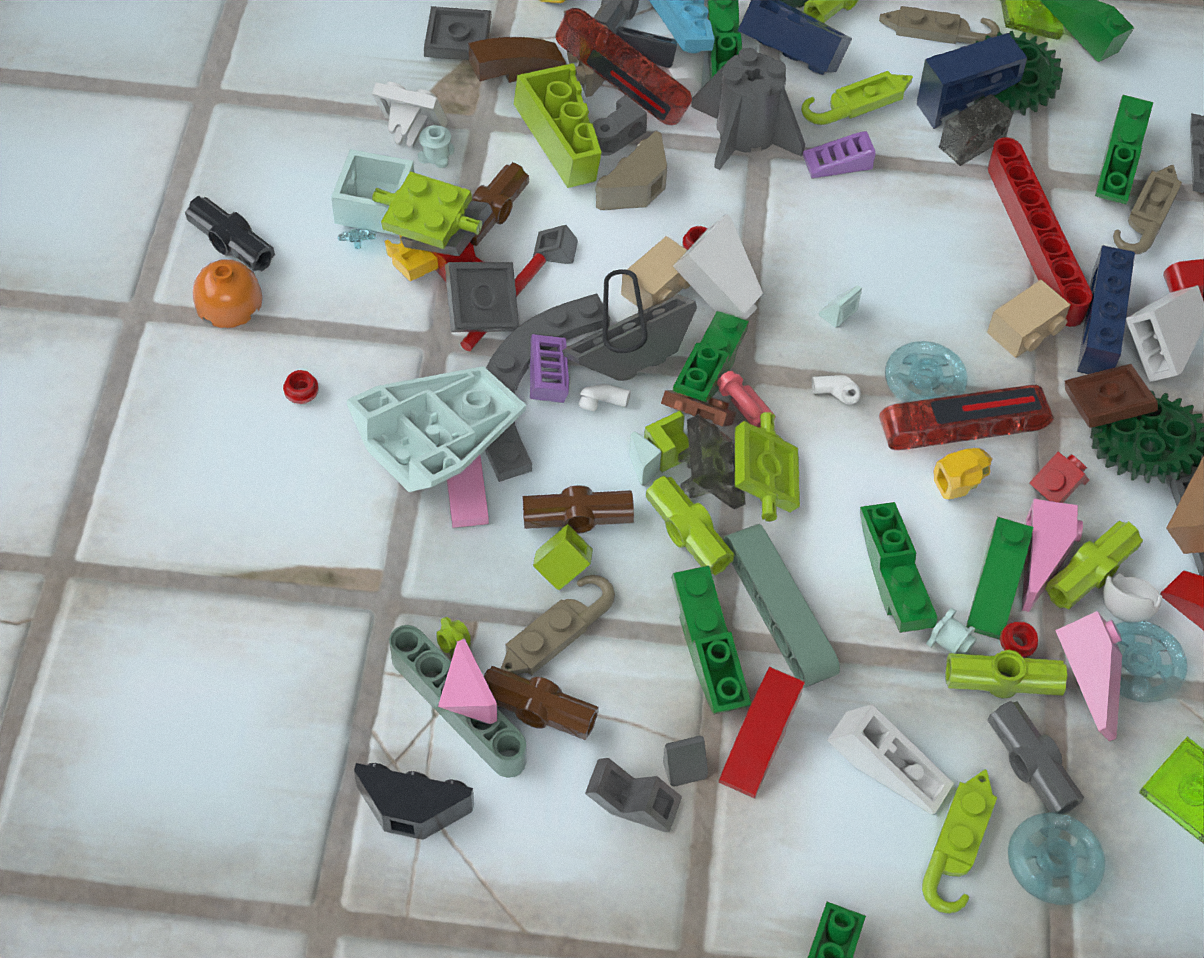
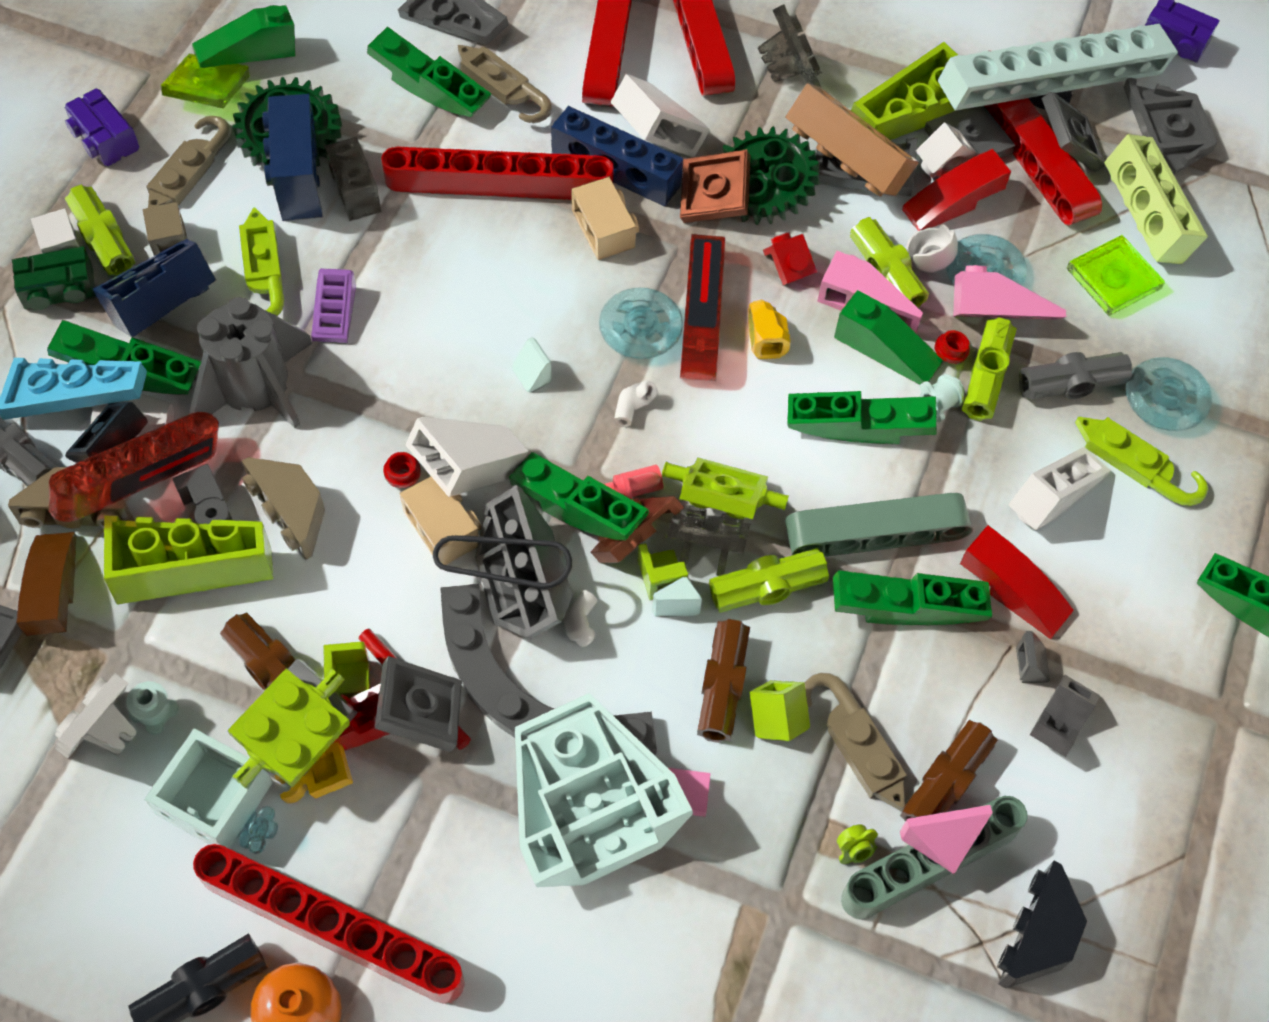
camera: 75 degrees left, 5 degrees up
(292, 296) = (314, 908): none -> red beam
(297, 380) = (467, 931): red plate -> none
(500, 244) = (351, 663): none -> lime panel
(548, 390) = (539, 676): medium lavender slope -> none
(557, 244) = (350, 614): dark grey slope -> none
(863, 26) = (164, 226): none -> dark tan brick

